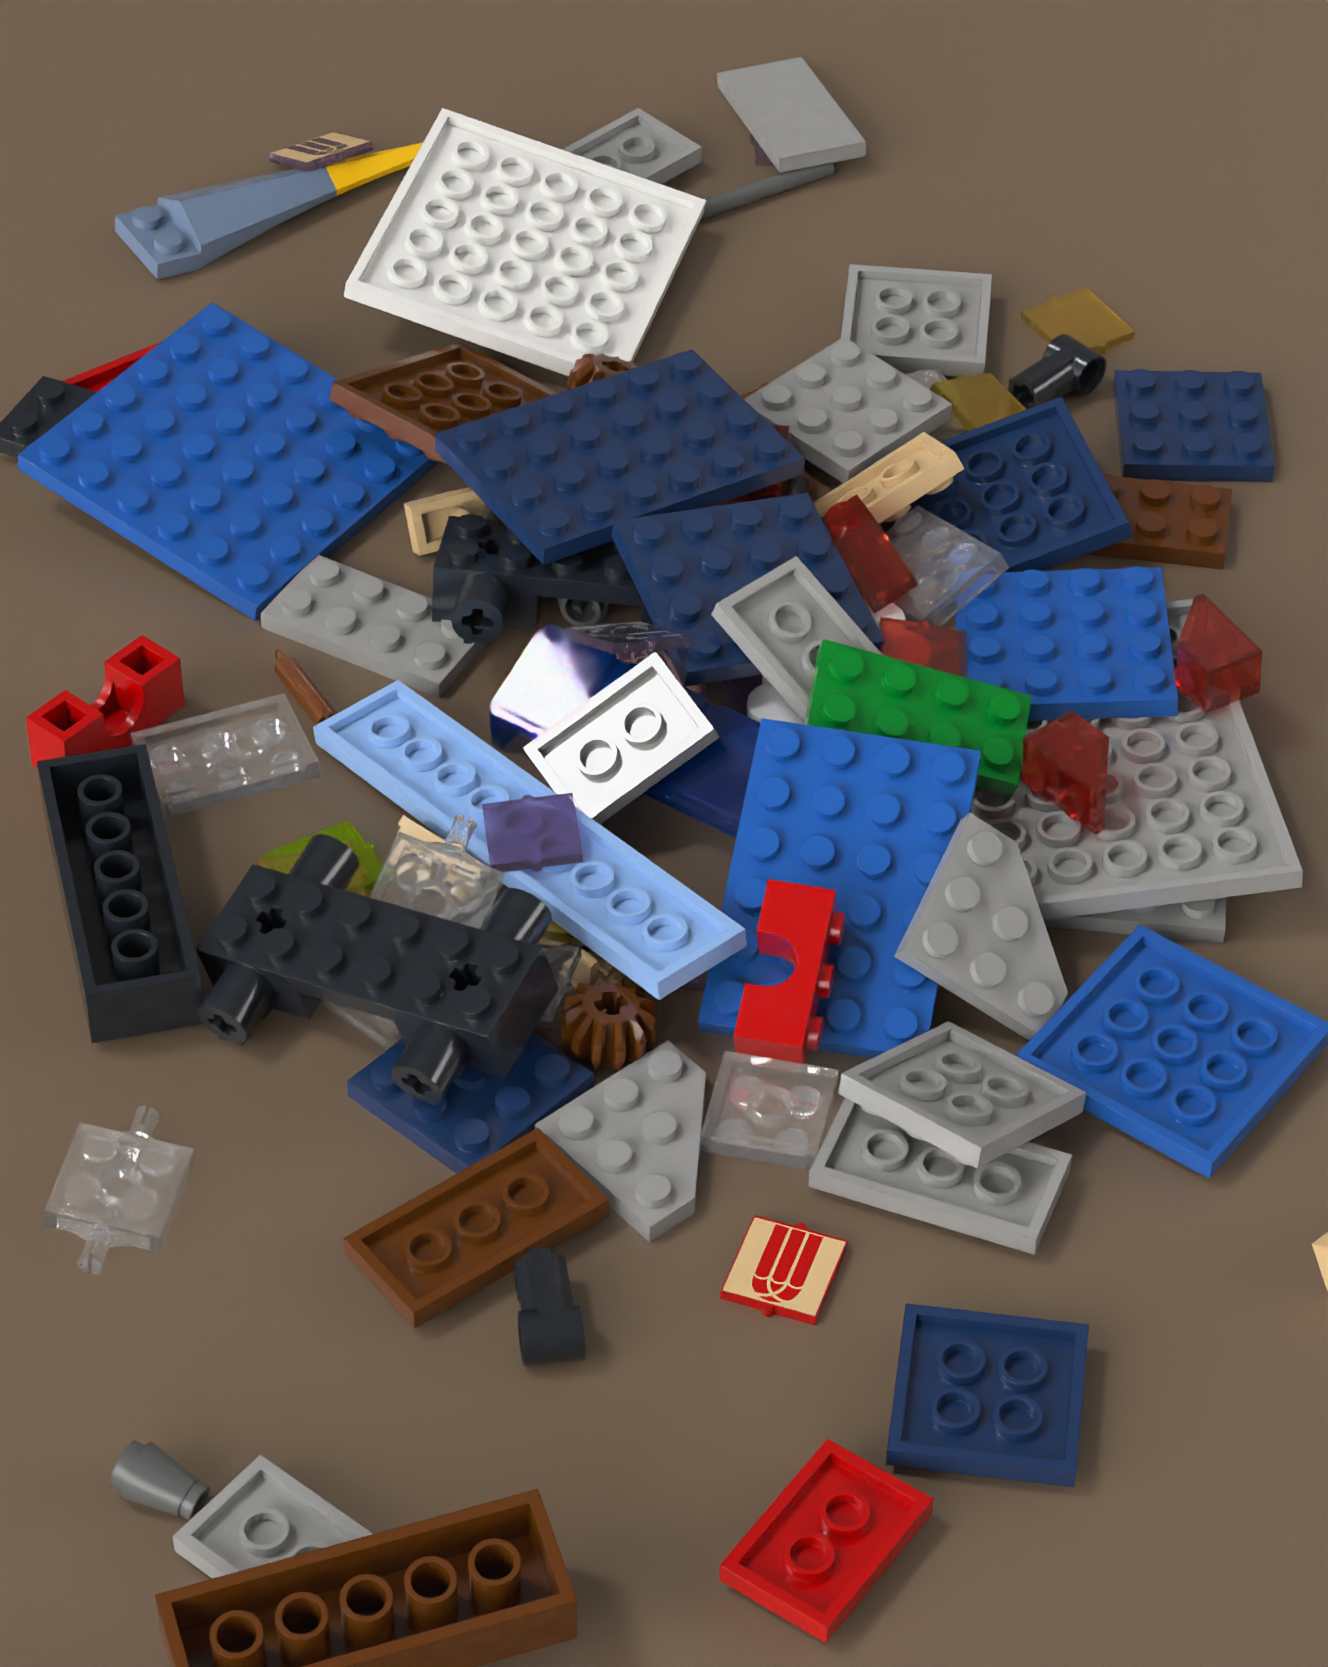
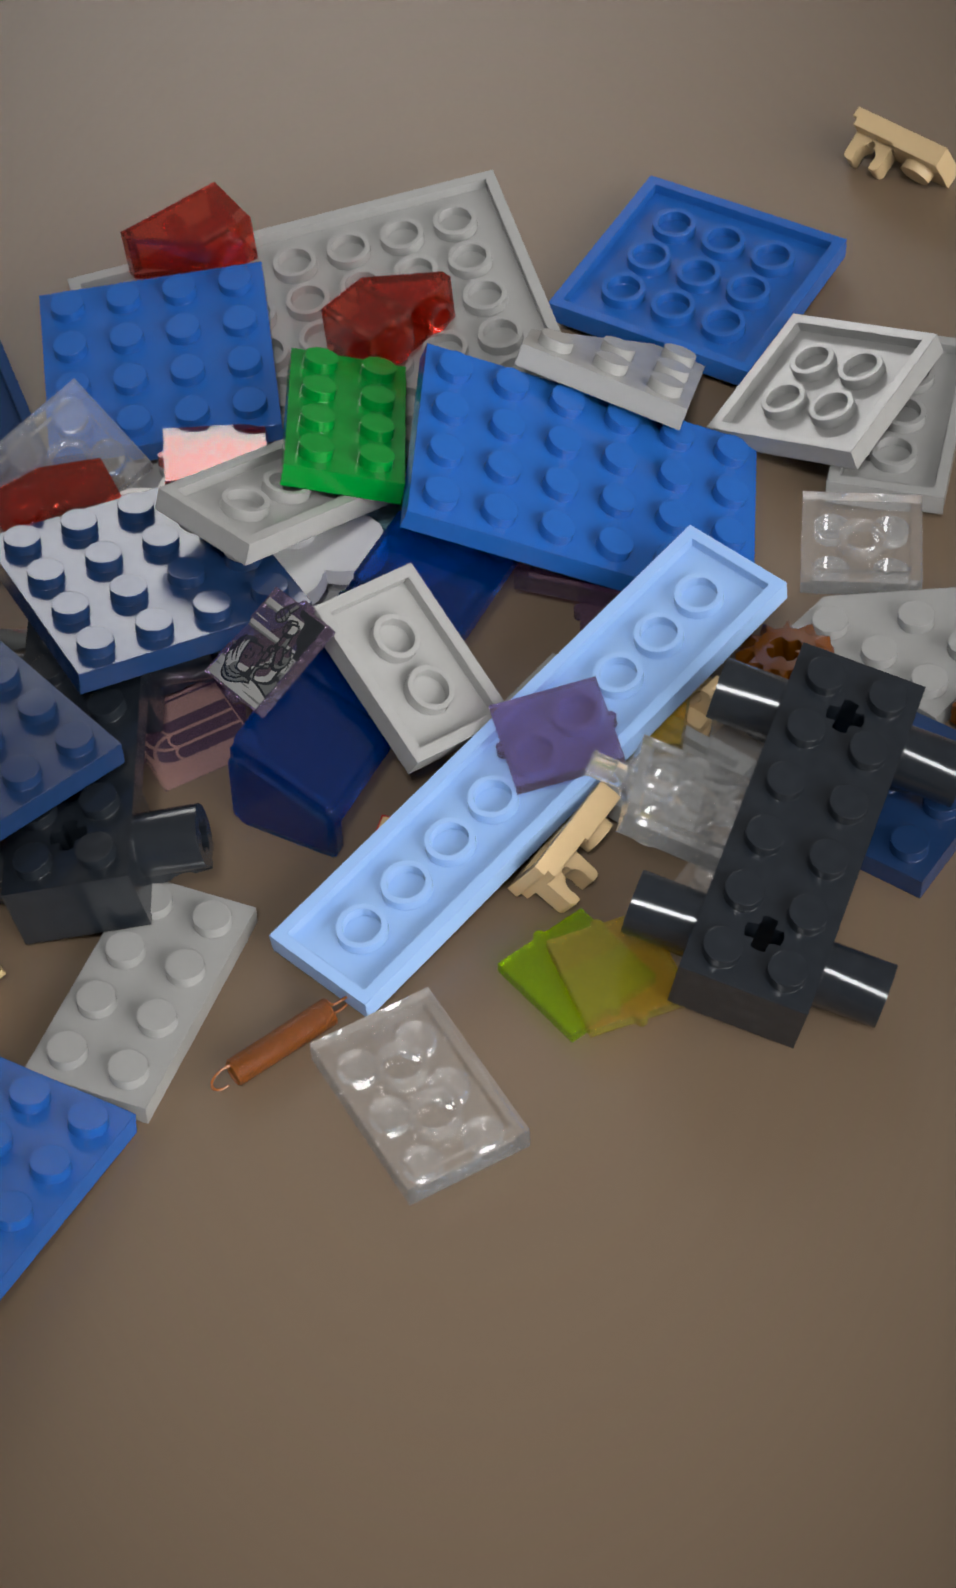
camera: 95 degrees left, 5 degrees up
(120, 893) = (702, 1132): black brick -> none
(138, 694) = (337, 1193): red arch -> none
(800, 927) = (766, 512): red arch -> none

